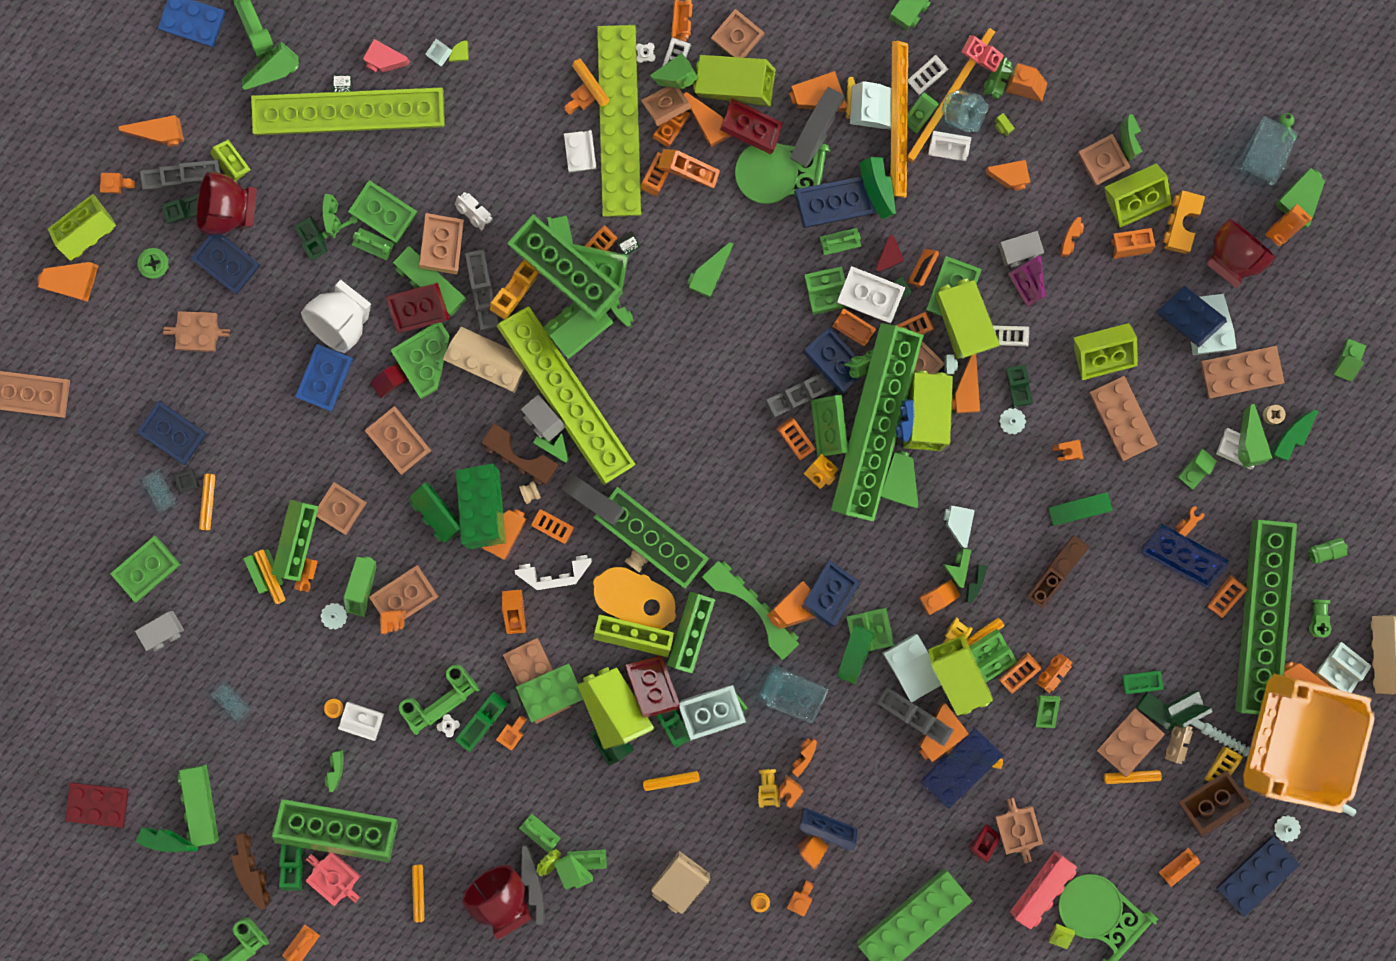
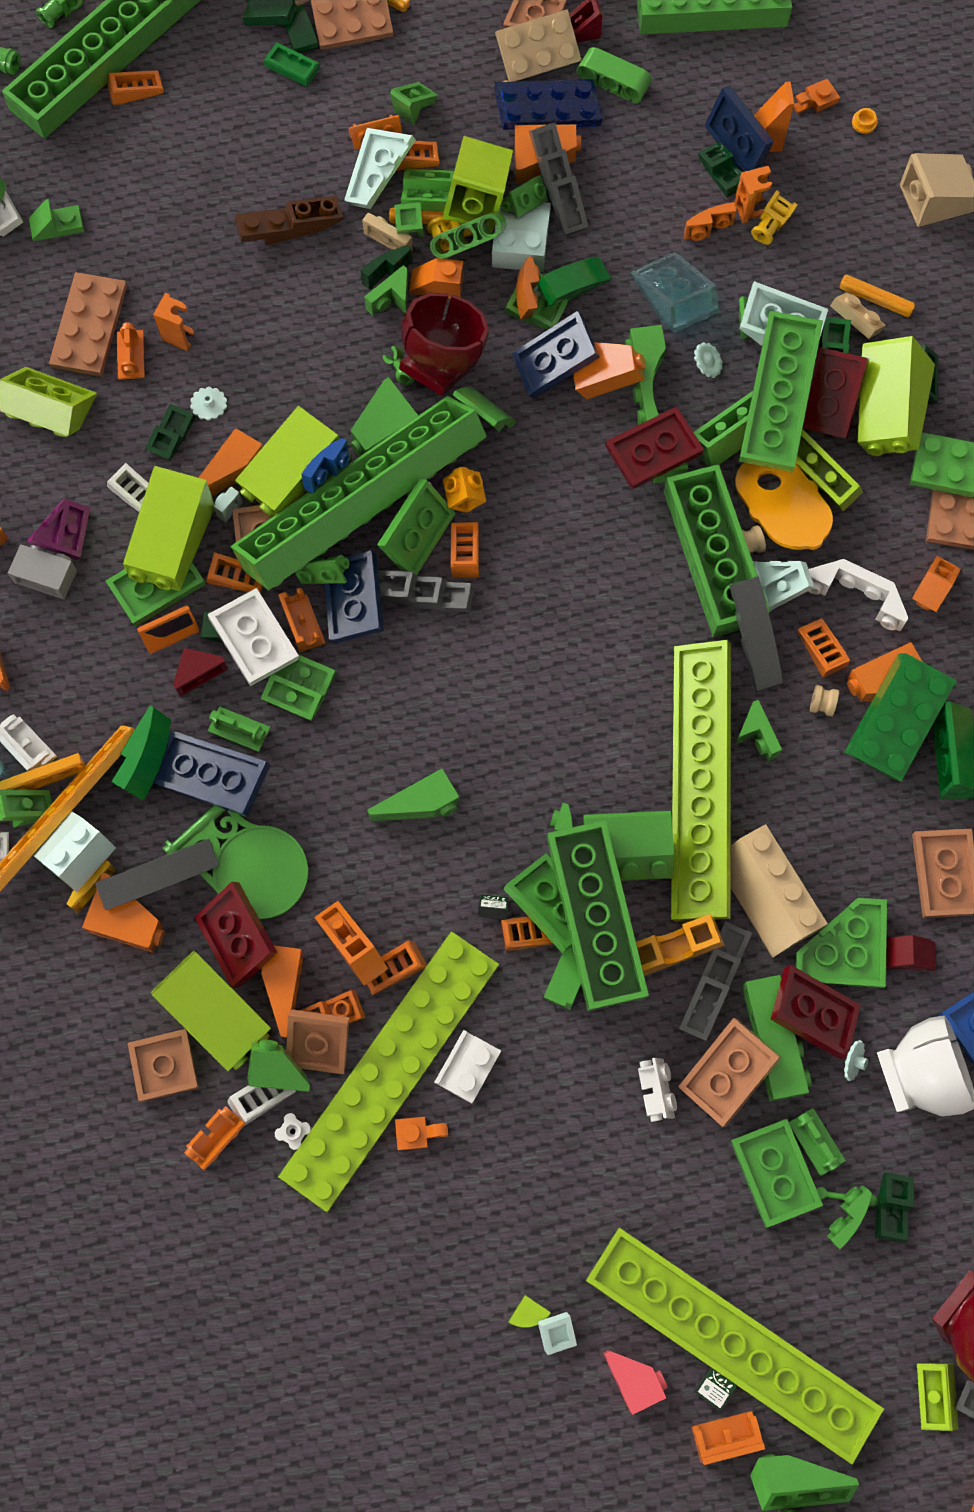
camera: 140 degrees left, 15 degrees down
(320, 64) = (727, 1438): none -> orange hinge
(380, 299) = (855, 1060): none -> light aqua piece
(499, 441) = (793, 719): reddish brown arch -> none
(543, 417) = (750, 770): light grey brick -> none
(590, 82) = (390, 1142): light orange axle -> none
(603, 546) = (783, 580): none -> light aqua wing
(673, 757) = (862, 319): none -> tan plate
(679, 658) = (781, 391): none -> bright green plate
(729, 572) = (654, 448): none -> dark red plate
(740, 661) = (708, 360): none -> light aqua piece
(823, 803) = (721, 167): none -> dark green slope
(846, 529) = (484, 408): none -> bright green slope
(883, 632) = (526, 282): none -> orange slope
(899, 549) = (442, 349): none -> dark red plate
(912, 522) = (401, 377): none -> bright green arm
(925, 692) = (525, 197): none -> bright green hinge
(937, 630) = (457, 240): none -> bright green beam
(937, 821) = (614, 74): none -> bright green beam
(959, 523) = (353, 335): light aqua slope -> none
(983, 619) = (409, 218): none -> bright green panel
(984, 606) = (386, 234): none -> tan plate
(998, 805) = (538, 46): none -> tan plate
(1032, 644) = (375, 165): none -> light aqua wing
(1080, 509) = (211, 263): green slope -> none
(1082, 417) = (130, 352): none -> orange hinge
(1184, 556) = (144, 144): clear blue plate -> none
(1187, 525) = (114, 173): orange plate -> none

